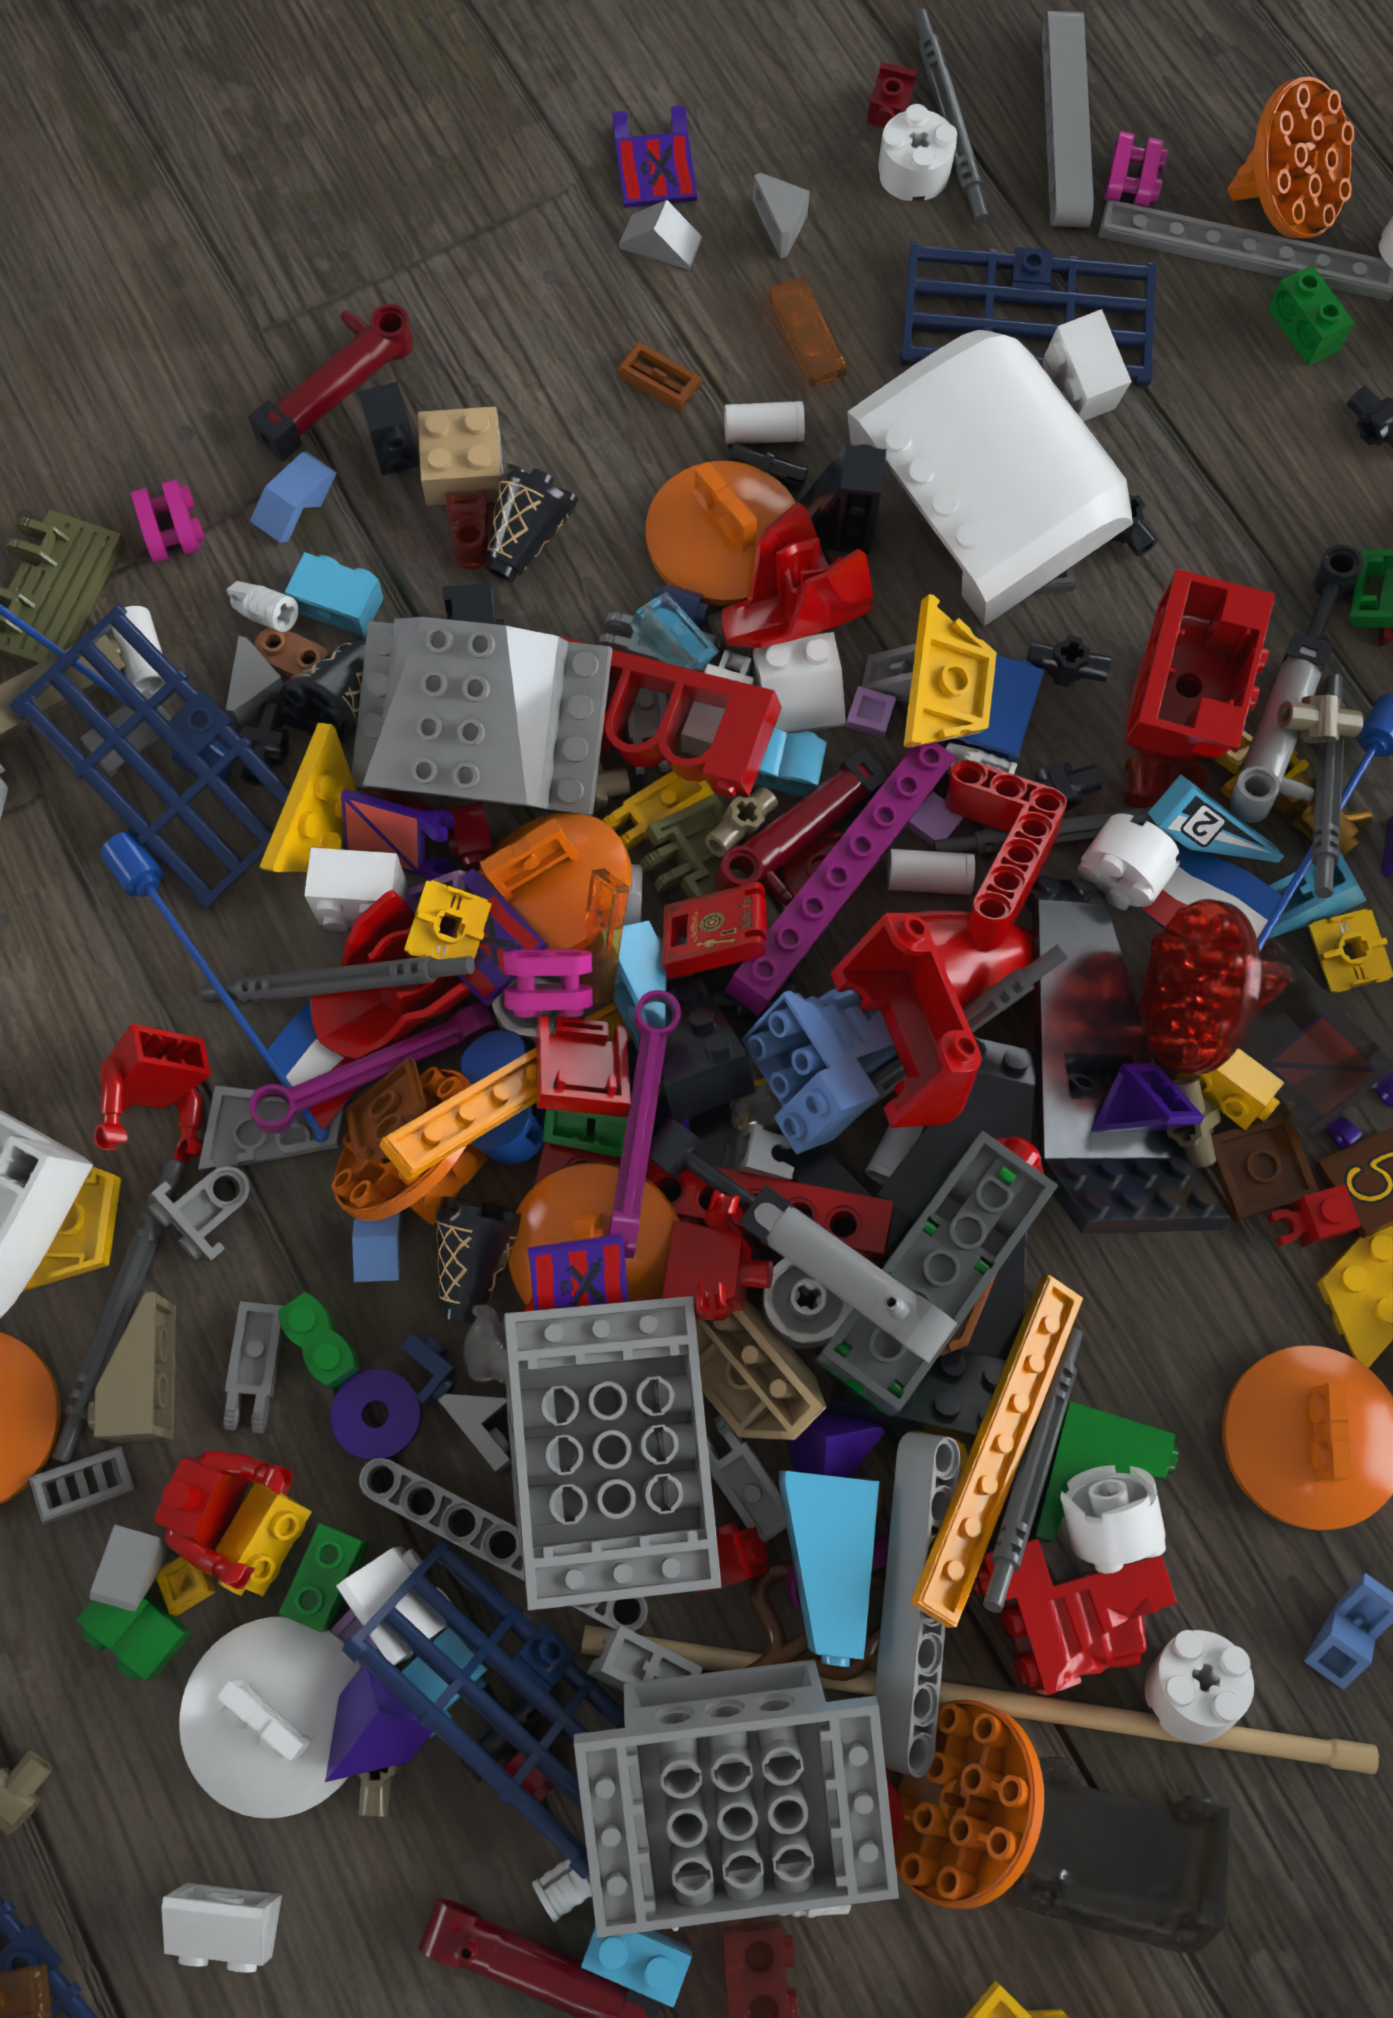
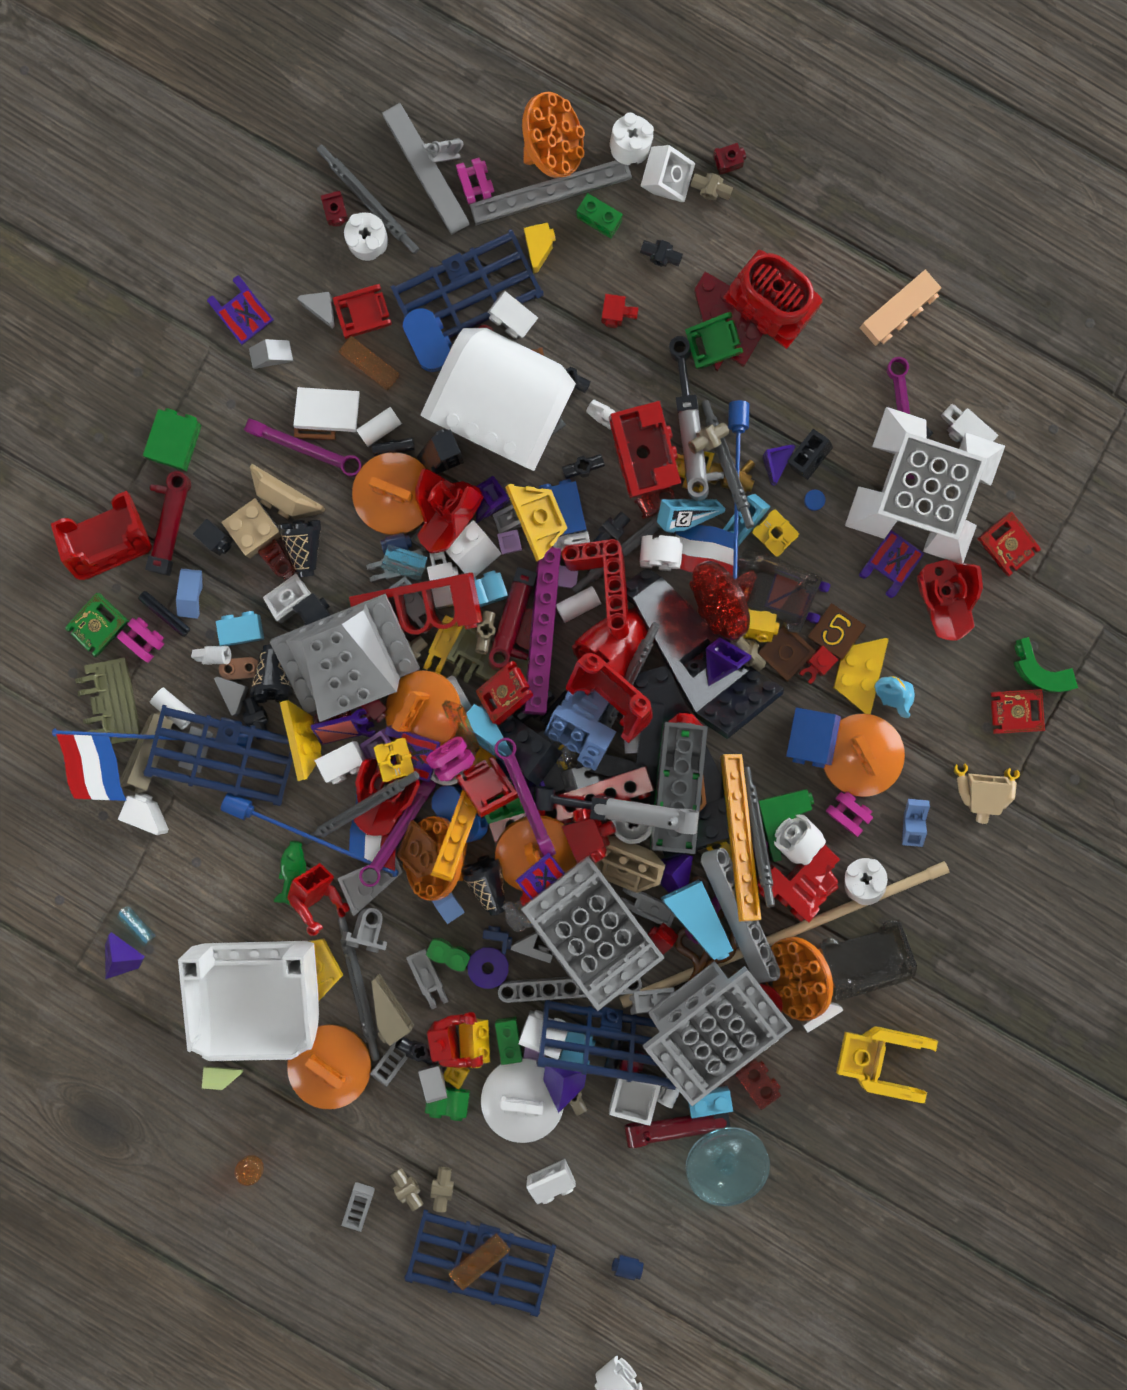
camera: 25 degrees left, 15 degrees up
(104, 462) = (93, 628): none -> green container
(131, 1467) = (409, 1047): none -> black axle
(159, 1009) = (292, 866): none -> green animal
(212, 352) = (102, 540): none -> red windscreen
(232, 507) = (162, 612): none -> black axle
(423, 589) = (285, 597): none -> white slope
(425, 268) = (172, 439): none -> green brick
(490, 1855) = (634, 1101): none -> white piece
(541, 438) = (283, 497): none -> tan wedge
(571, 328) = (261, 430): none -> magenta piece
(696, 356) = (326, 409): none -> white tile
(851, 257) = (365, 309): none -> red container
(880, 630) = (493, 498): none -> dark purple slope
(922, 321) = (427, 339): none -> blue brick
(936, 1918) = (832, 1010): none -> white slope
(1105, 95) = (443, 150): none -> light grey hinge
(1143, 597) = (600, 413): none -> white hinge
(1187, 305) = (539, 244): none -> yellow slope
(1238, 1344) = (813, 737): none -> blue brick
(1240, 1510) = (847, 801): none -> dark pink brick
(1260, 460) = (615, 309): none -> red brick

